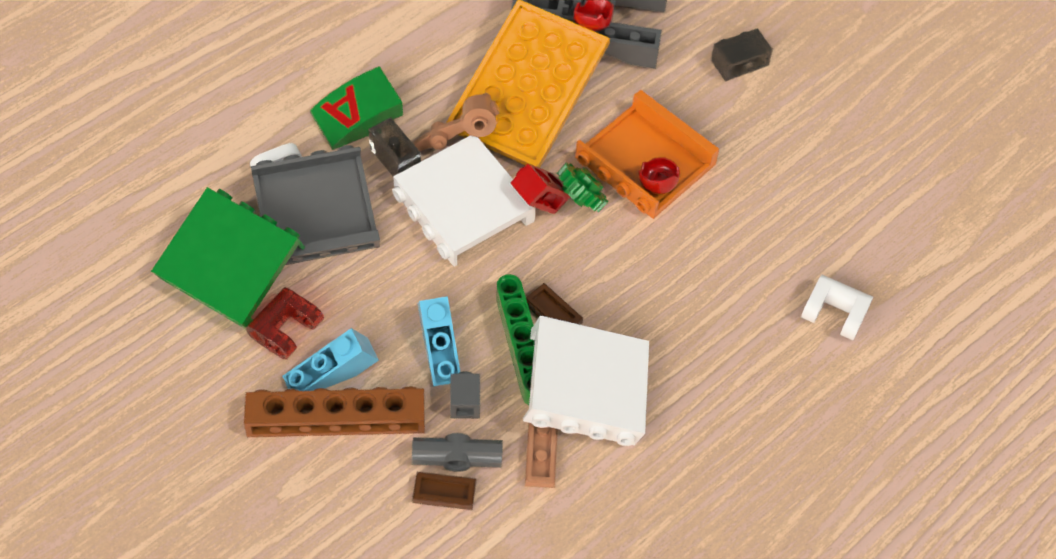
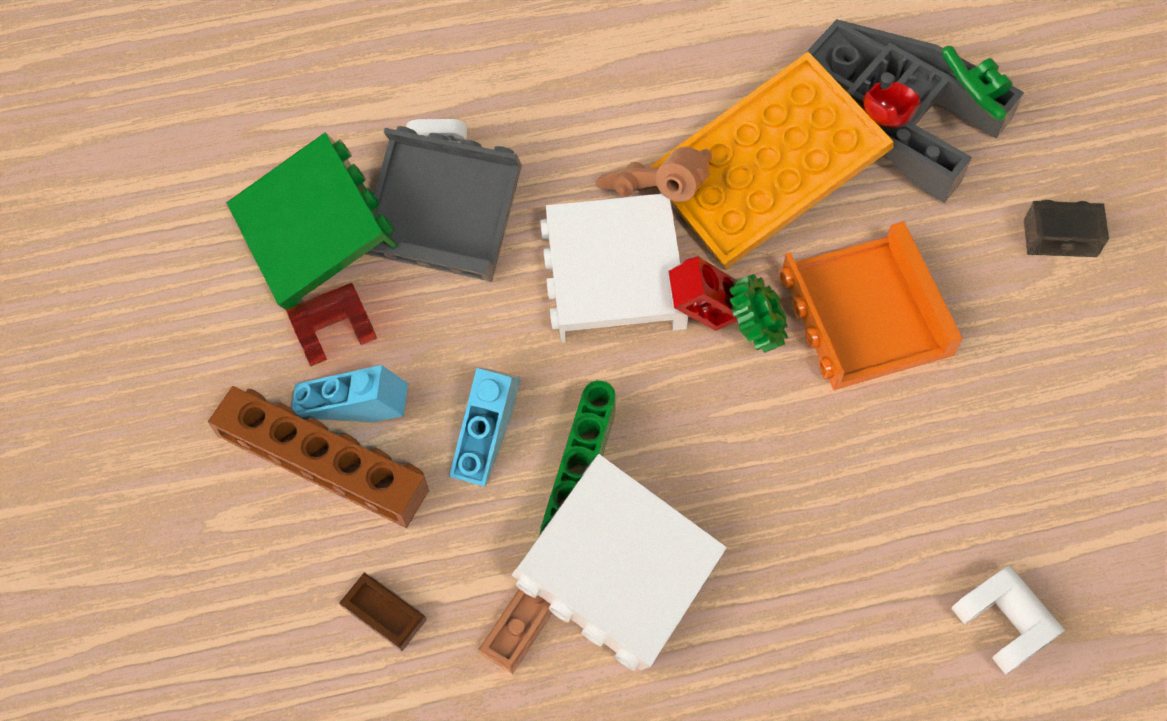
camera: 35 degrees right, 5 degrees up
(356, 107) = (559, 111): green slope -> none
(393, 147) = (567, 169): clear smoke brick -> none
(457, 452) = (422, 572): dark grey piece -> none
(465, 396) = (472, 506): dark grey brick -> none
(548, 304) = (642, 449): reddish brown tile -> none
(659, 175) = (865, 339): red hair -> none

